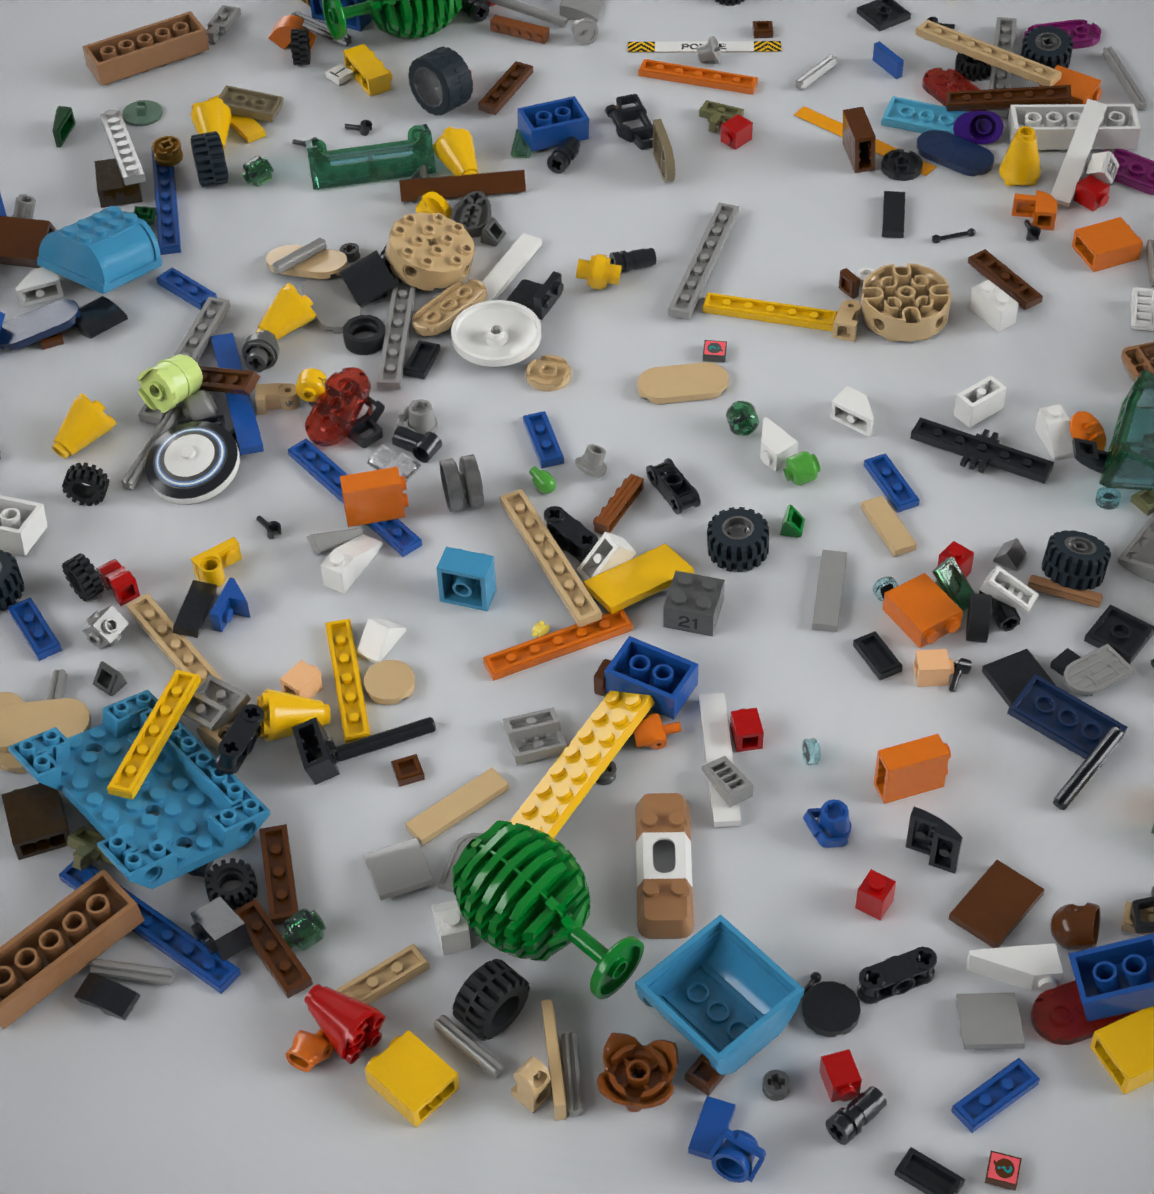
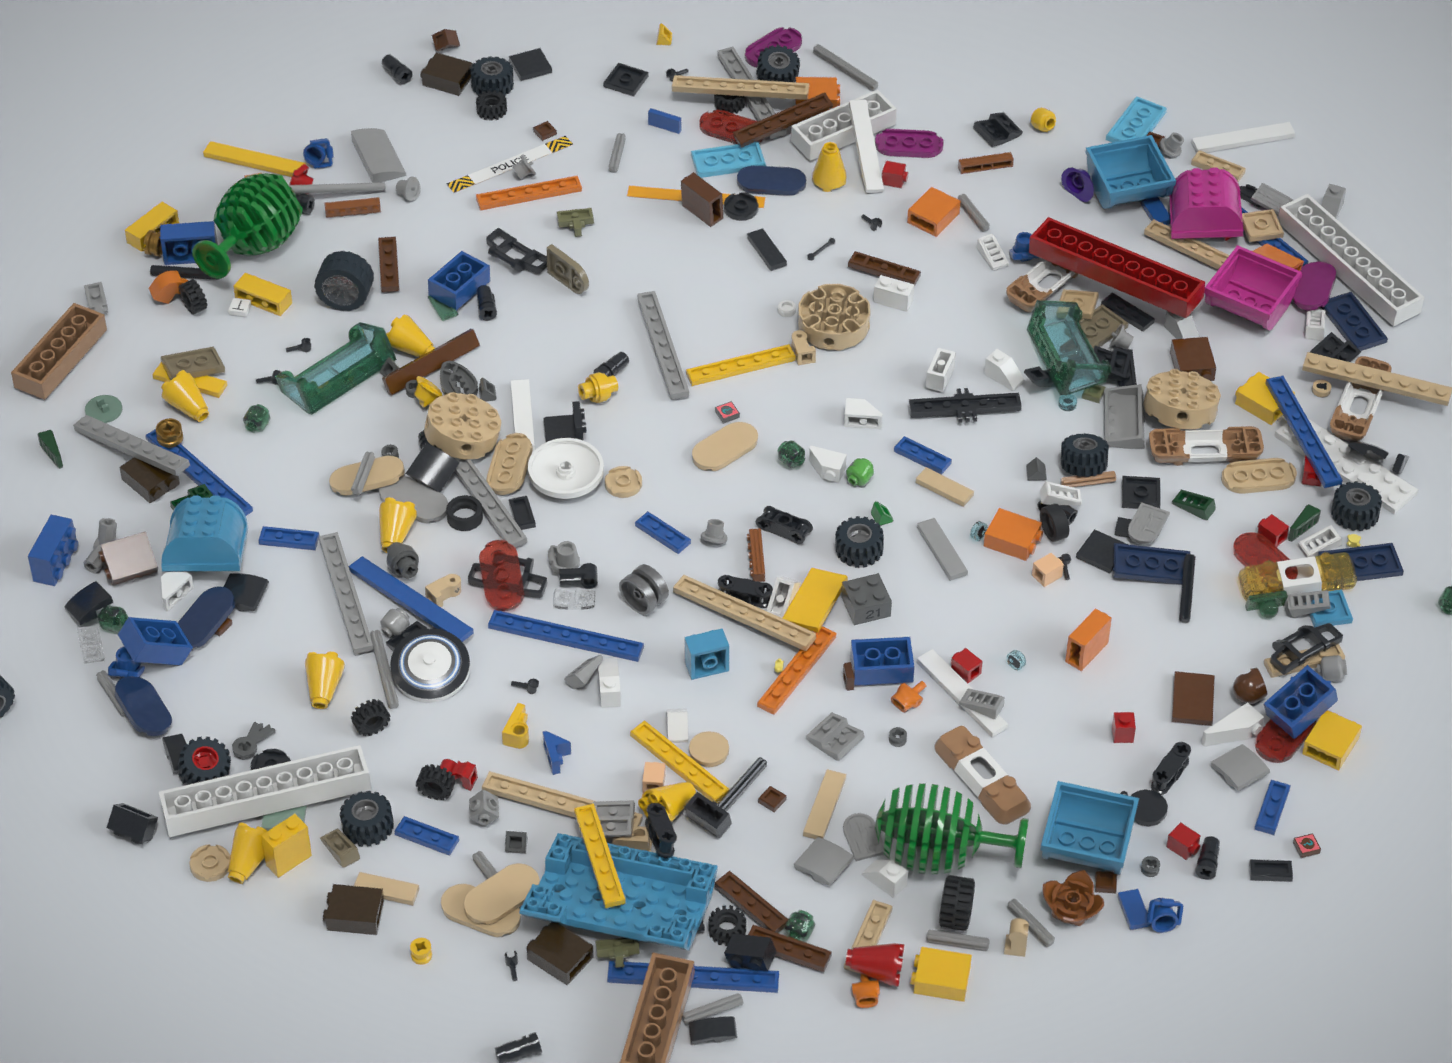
camera: 35 degrees left, 0 degrees up
(170, 382) = (367, 614): yellowish green piece -> none
(195, 609) = (533, 765): black tile -> none
(209, 159) = (217, 425): black wheel -> none
(228, 380) = (398, 595): reddish brown plate -> none
(310, 383) = (469, 568): yellow head -> none
(374, 496) = (595, 627): orange brick -> none
(542, 480) = (690, 562): bright green cylinder -> none
(554, 1060) = (1009, 912): tan tile -> none
(583, 761) = (883, 740): yellow plate -> none
(736, 131) = (601, 229): red brick -> none
(832, 825) = (1063, 698): blue piece -> none
(849, 283) = (781, 318): reddish brown tile -> none
(877, 655) = (1005, 578): black tile -> none
(935, 838) = (1135, 675): black slope -> none
(953, 582) = (1020, 505): clear green tile -> none
(961, 554) = (1009, 493): red brick -> none
(979, 127) = (778, 152): dark purple piece -> none
(1040, 207) = (868, 201): orange brick -> none
(1087, 427) = (1023, 359): orange piece -> none
(1102, 166) = (890, 151): white slope -> none

